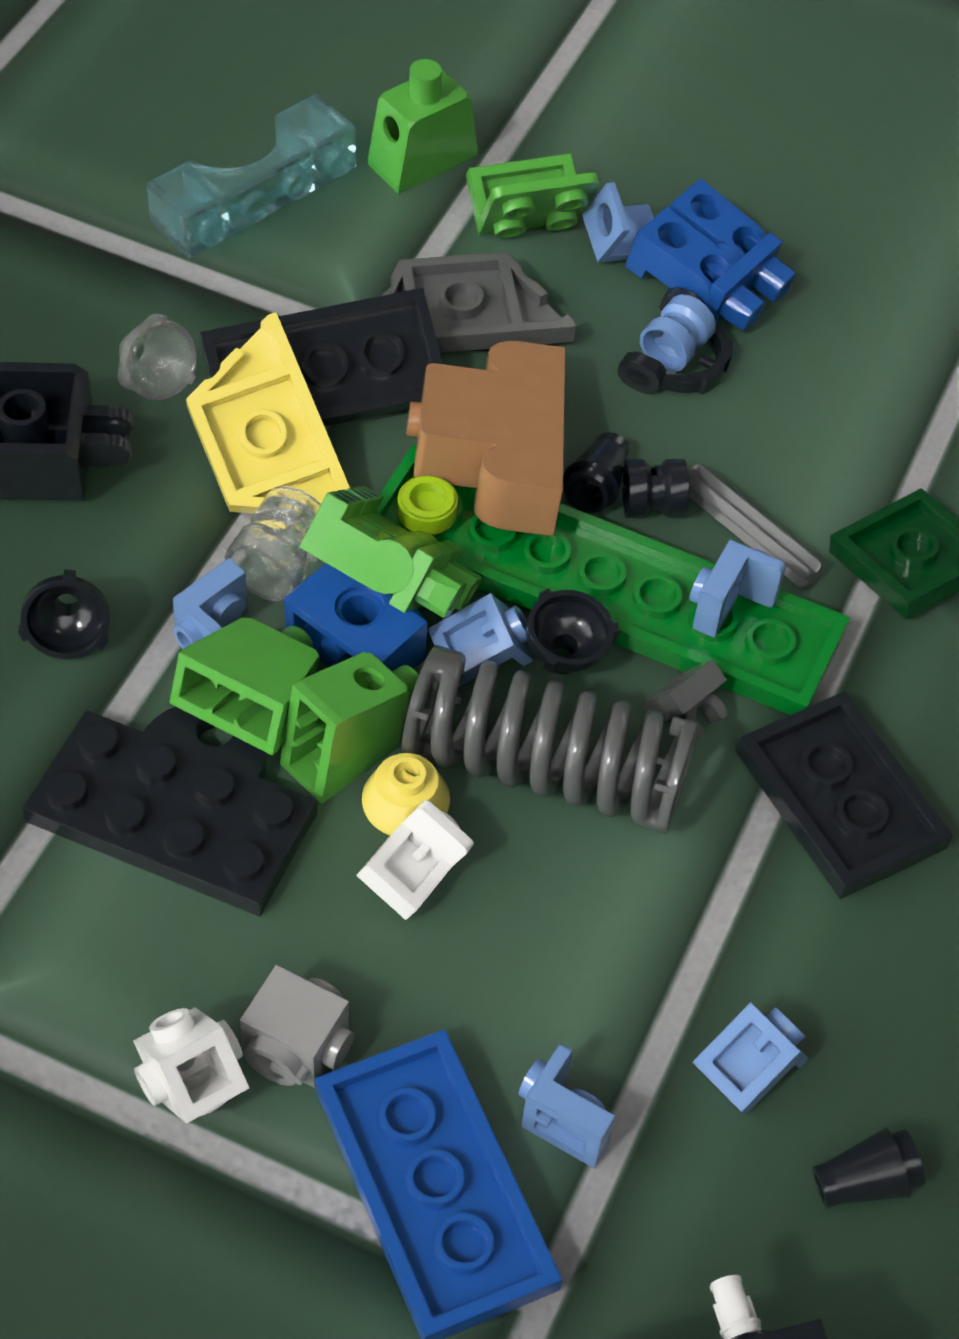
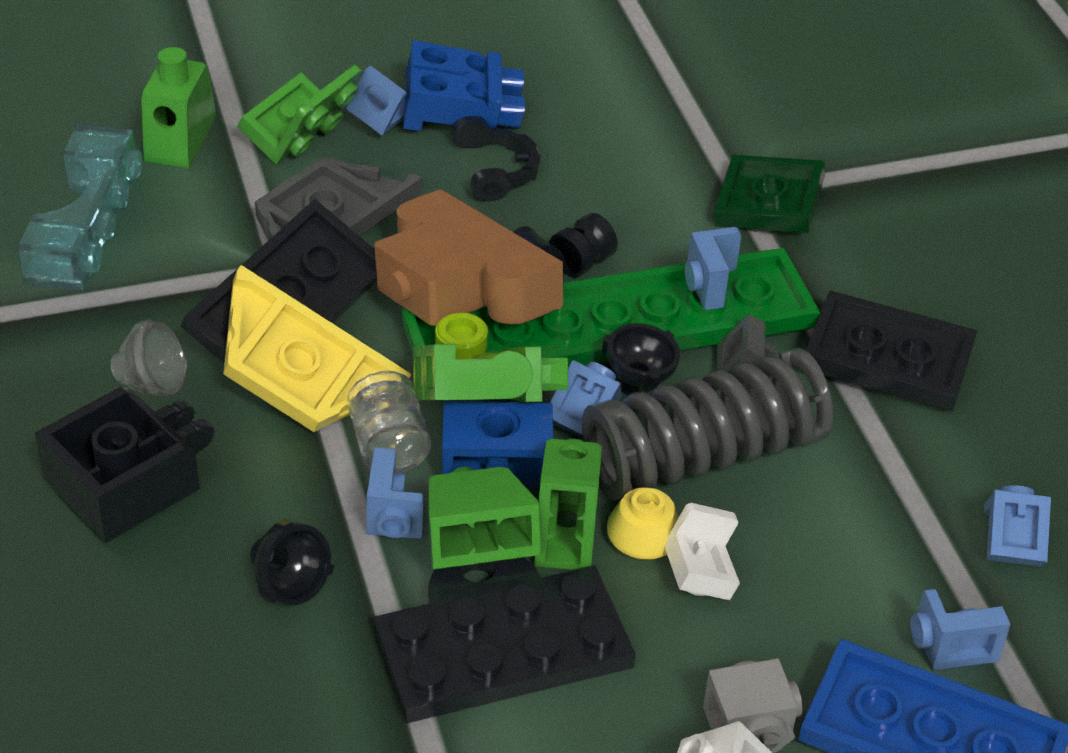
camera: 40 degrees left, 10 degrees down
(679, 331) = (488, 143): medium blue wheel -> none
(753, 525) = (654, 233): dark grey axle -> none

